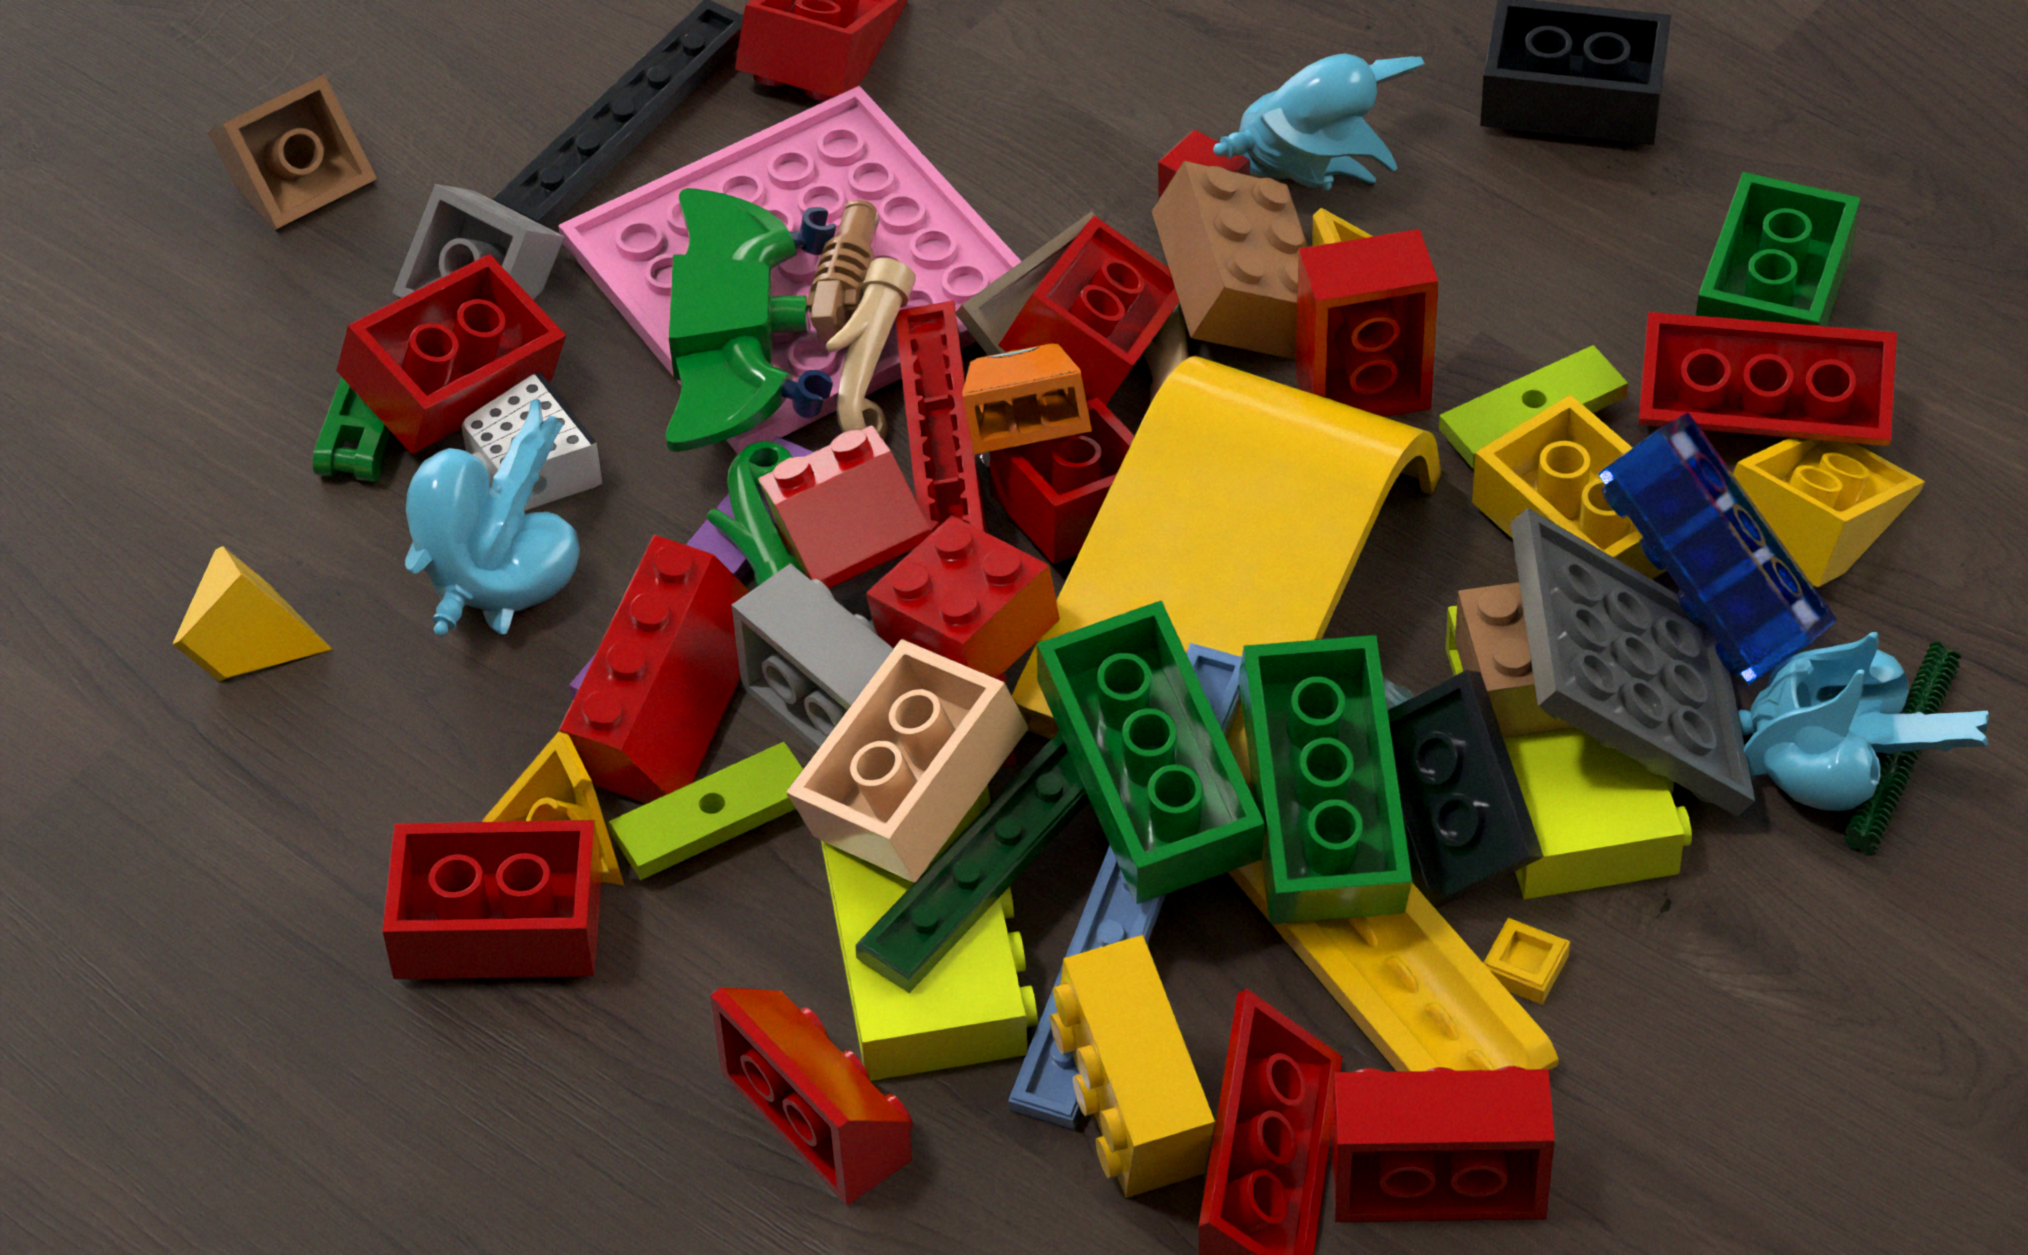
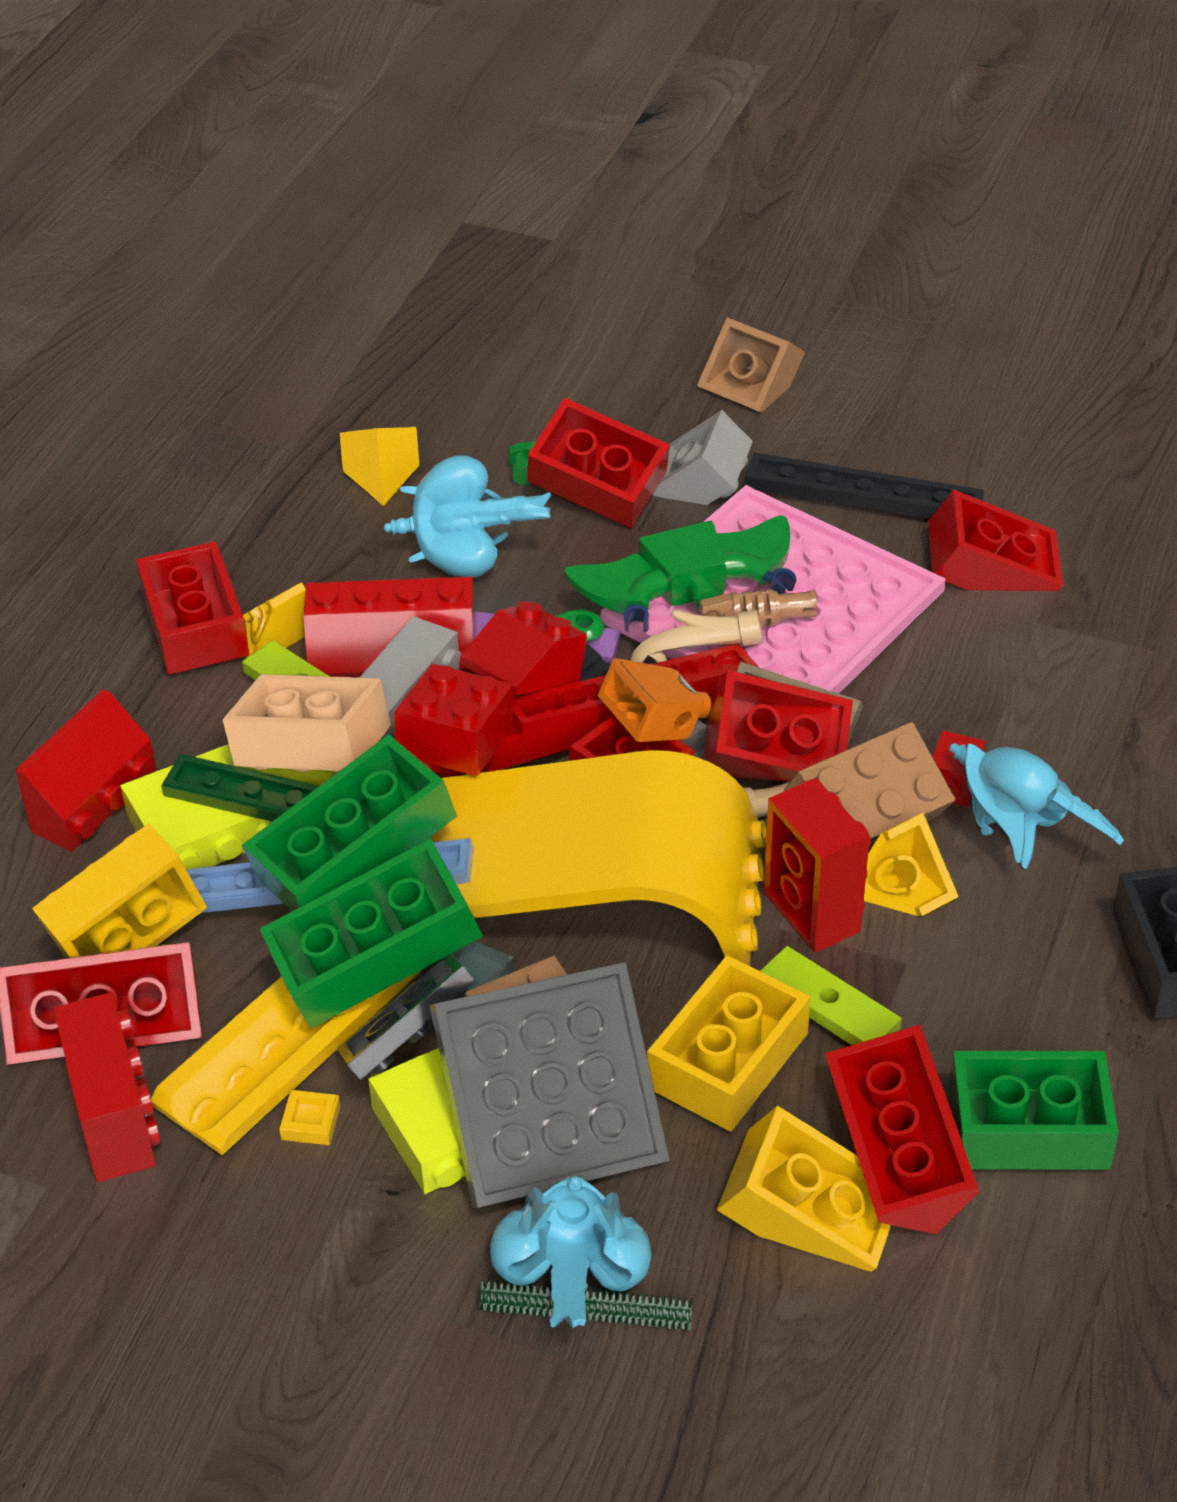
camera: 70 degrees right, 5 degrees down
(571, 463) = (569, 533): white torso -> none
(1716, 549) = (693, 1116): clear blue slope -> none

